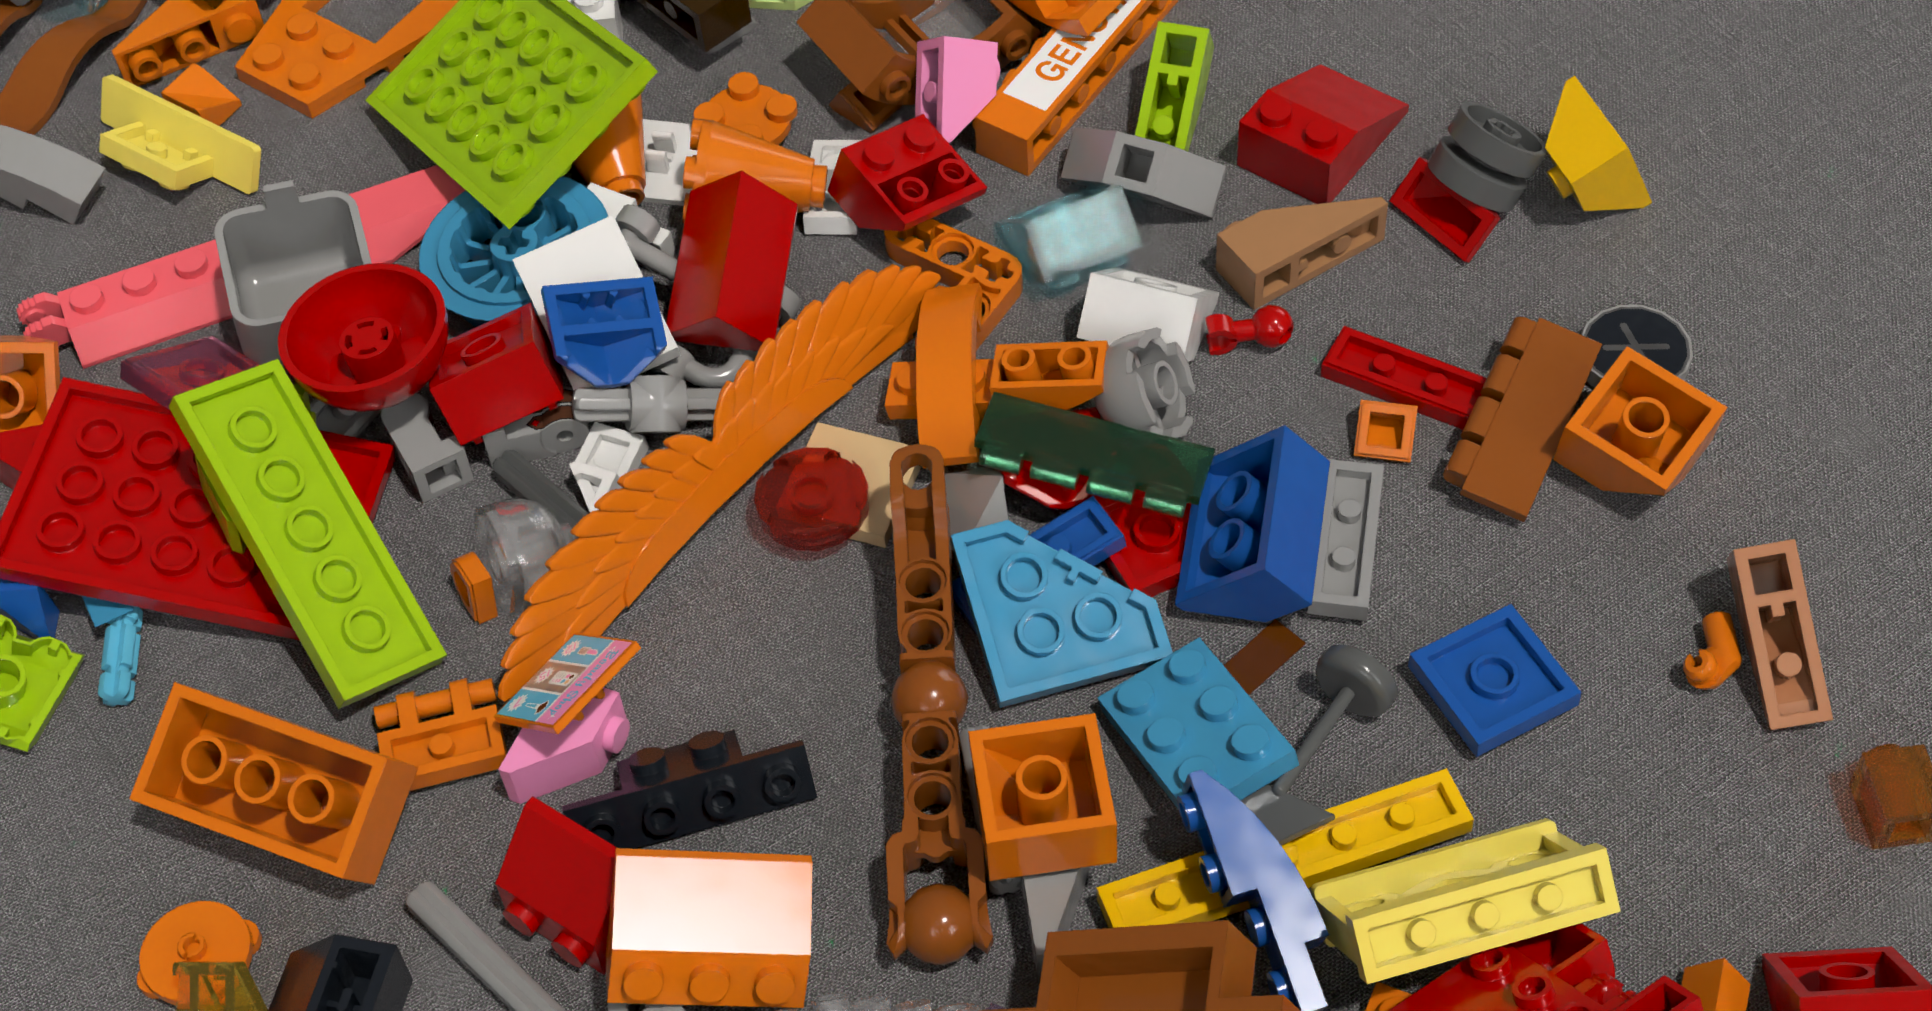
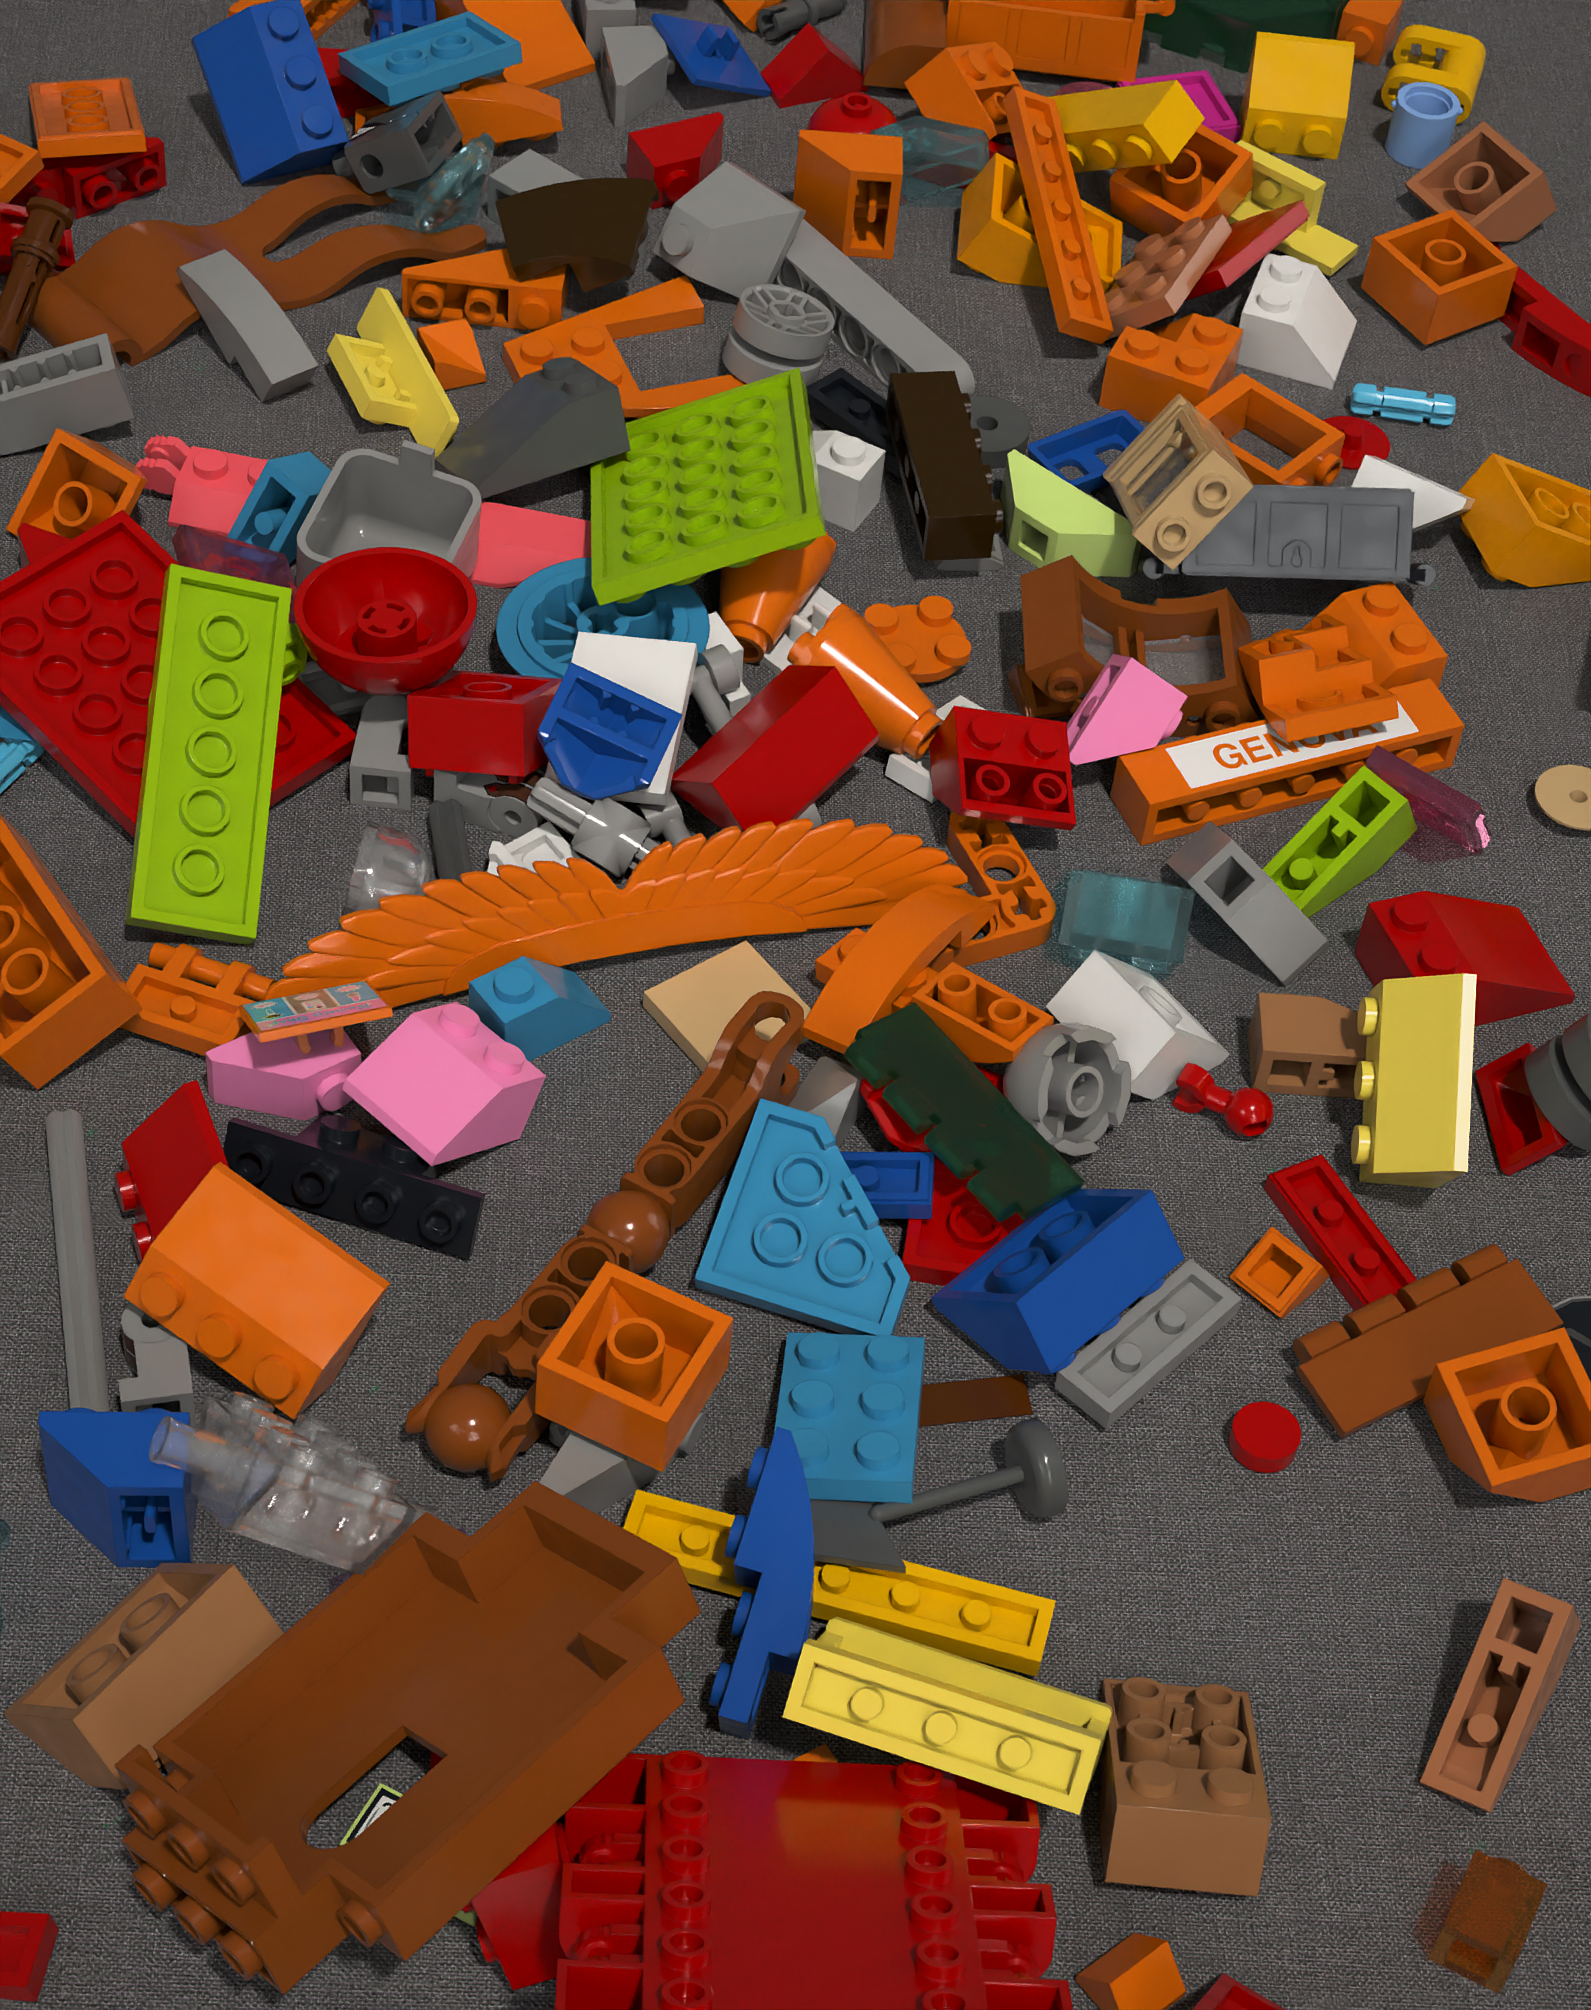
camera: 25 degrees right, 5 degrees down
(185, 295) = (280, 503): none -> dark azure slope
(333, 116) = (540, 429): none -> dark grey slope
(474, 587) = (325, 896): orange tile -> none
(701, 674) = (447, 1084): none -> bright pink slope
(706, 579) = (535, 1005): none -> dark azure slope
(812, 499) = (677, 1000): clear red tile -> none
(1226, 19) = (1433, 801): none -> clear pink tile
(1386, 229) = (1415, 1080): none -> light yellow slope
(1474, 555) = (1264, 1437): none -> red tile
(1494, 680) = (1178, 1557): blue plate -> none
(1661, 843) = (1182, 1788): none -> medium nougat slope
(1719, 658) = (1423, 1684): orange arm -> none

